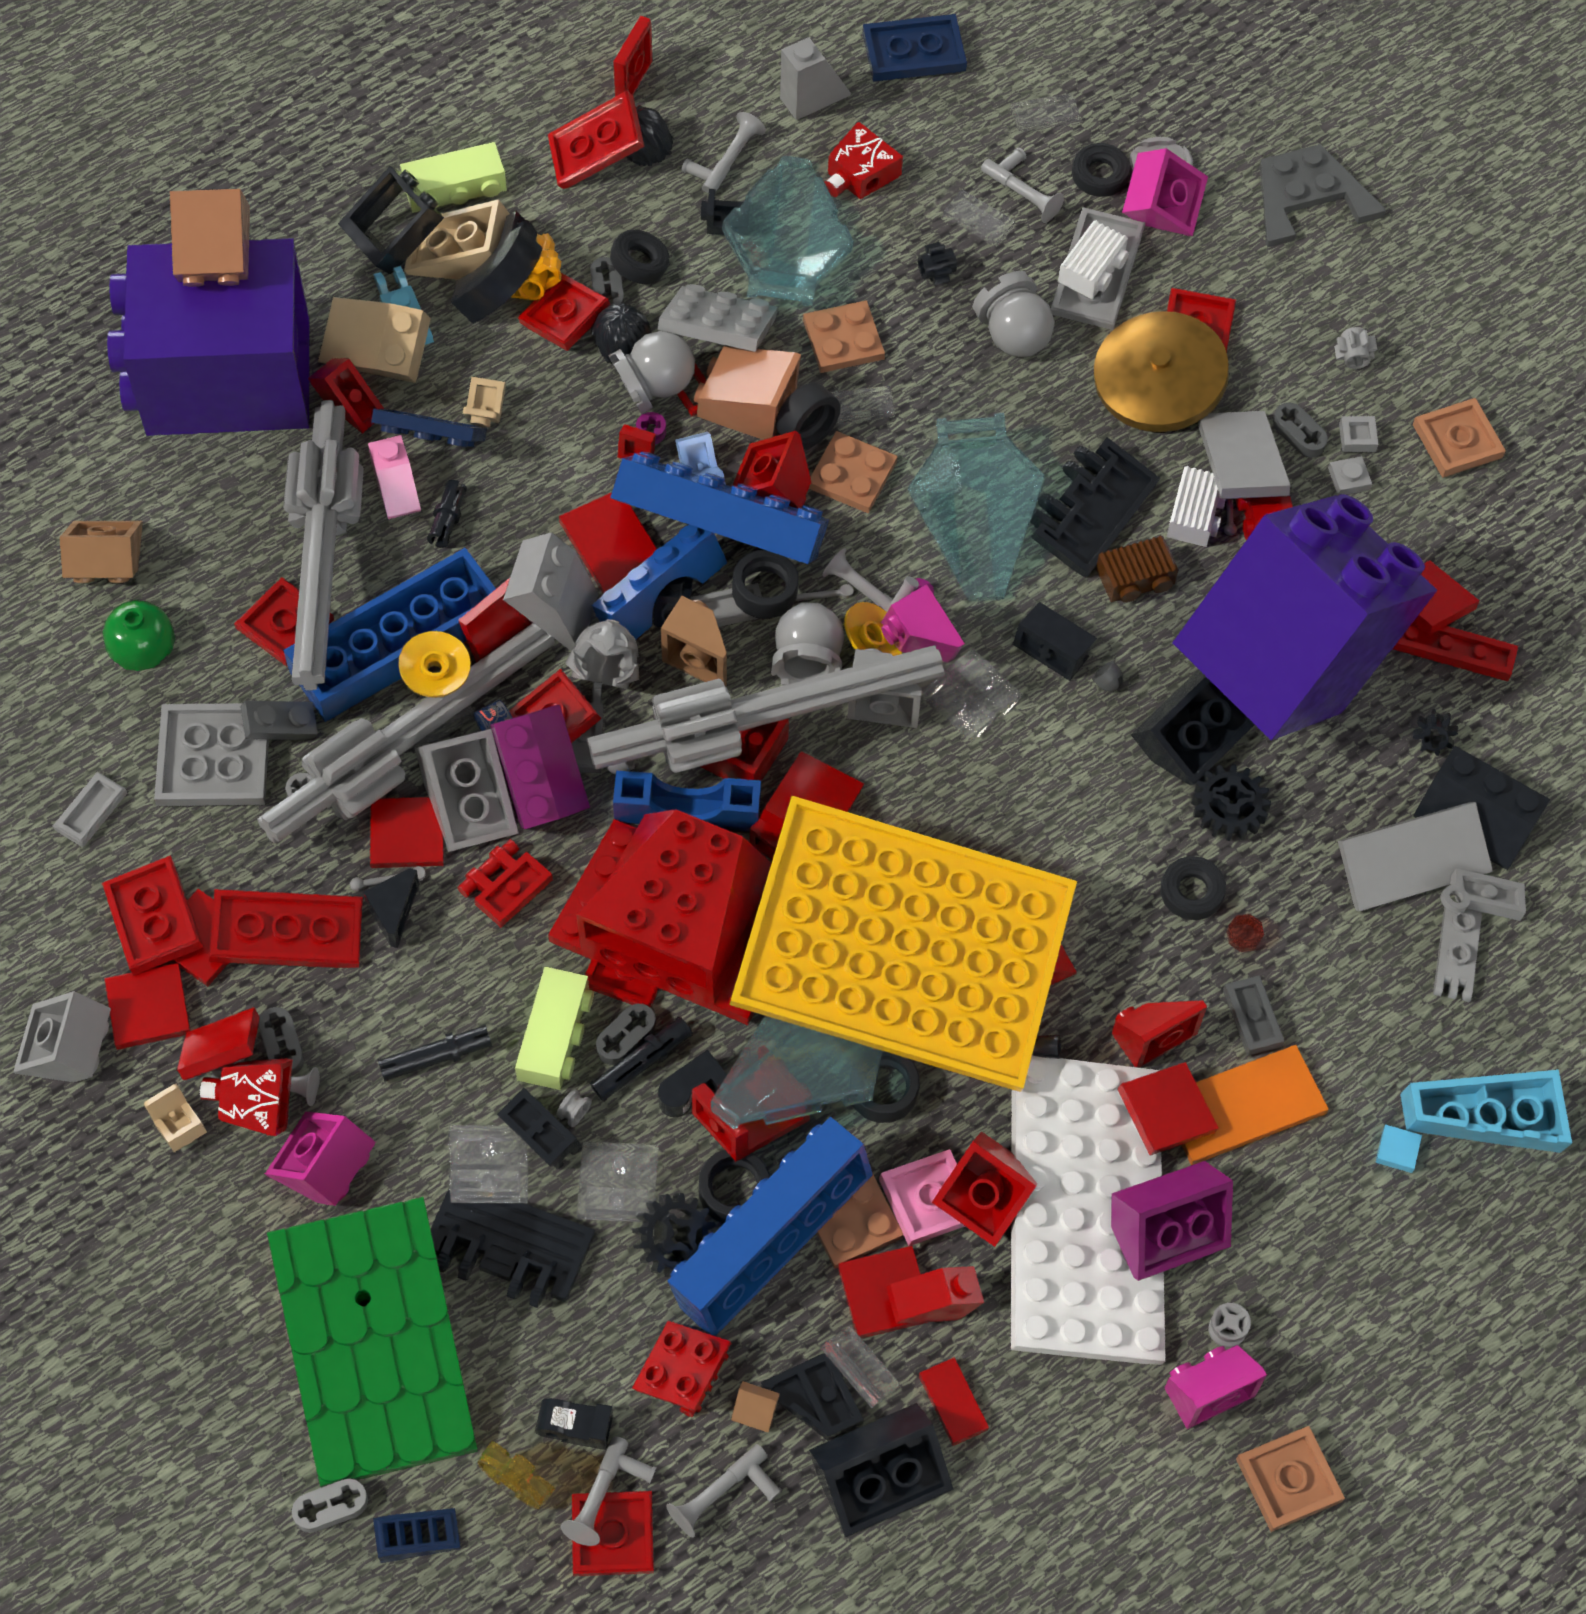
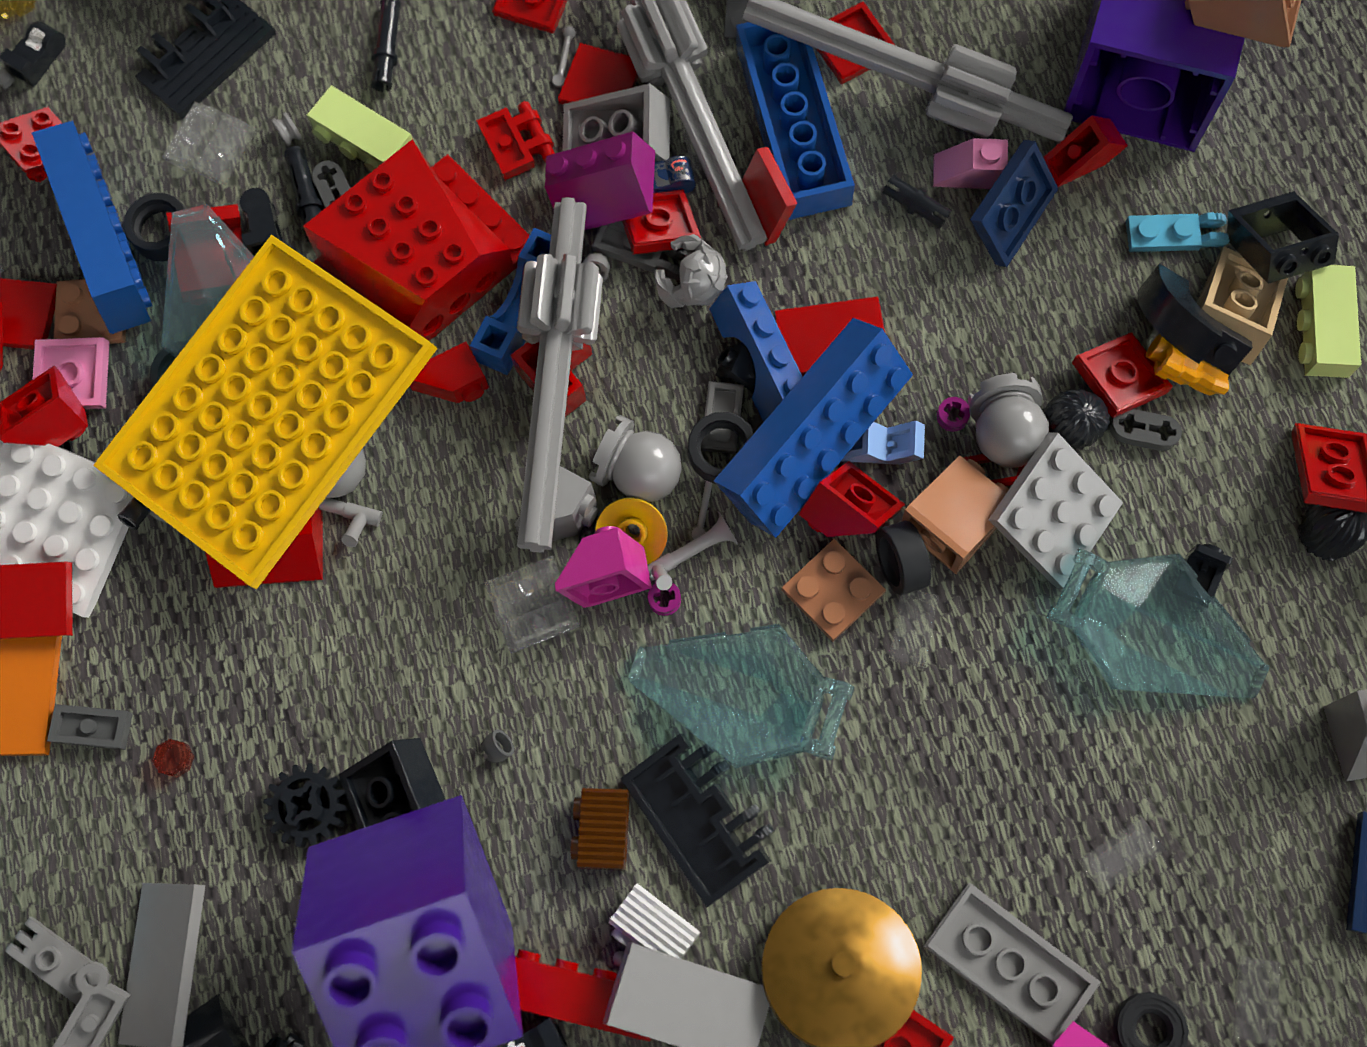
camera: 120 degrees right, 10 degrees up
(376, 337) = (1135, 191): tan slope -> none
(392, 902) = (527, 43): black slope -> none
(438, 650) = (732, 110): yellow dish -> none
(484, 401) = (1032, 268): tan bracket -> none
(487, 1165) = (268, 51): clear slope -> none
(539, 1129) = (277, 93): black hinge -> none
(552, 588) = (773, 242): light grey slope -> none
(632, 269) = (1193, 469): black tyre -> none
(635, 440) = (935, 390): red plate -> none
(659, 1219) = (136, 163): black gear -> none
(694, 641) = (676, 360): medium nougat slope -> none
(713, 178) = (1263, 589): light grey piece -> none
(814, 782) = (470, 405): red tile -> none
(843, 336) = (1006, 645): nougat plate -> none
(862, 163) = (1232, 746): red torso -> none
(937, 263) = (1066, 776): black gear -> none
(1000, 172) = (1181, 905): light grey piece -> none
(1015, 315) = (954, 831): light grey tile -> none
(1054, 641) = (555, 709): black hinge -> none
(1093, 260) = (1010, 953): white brick -> none
(1156, 1028) = (109, 623): red slope -> none
(1201, 869) = (223, 717): black tyre -> none

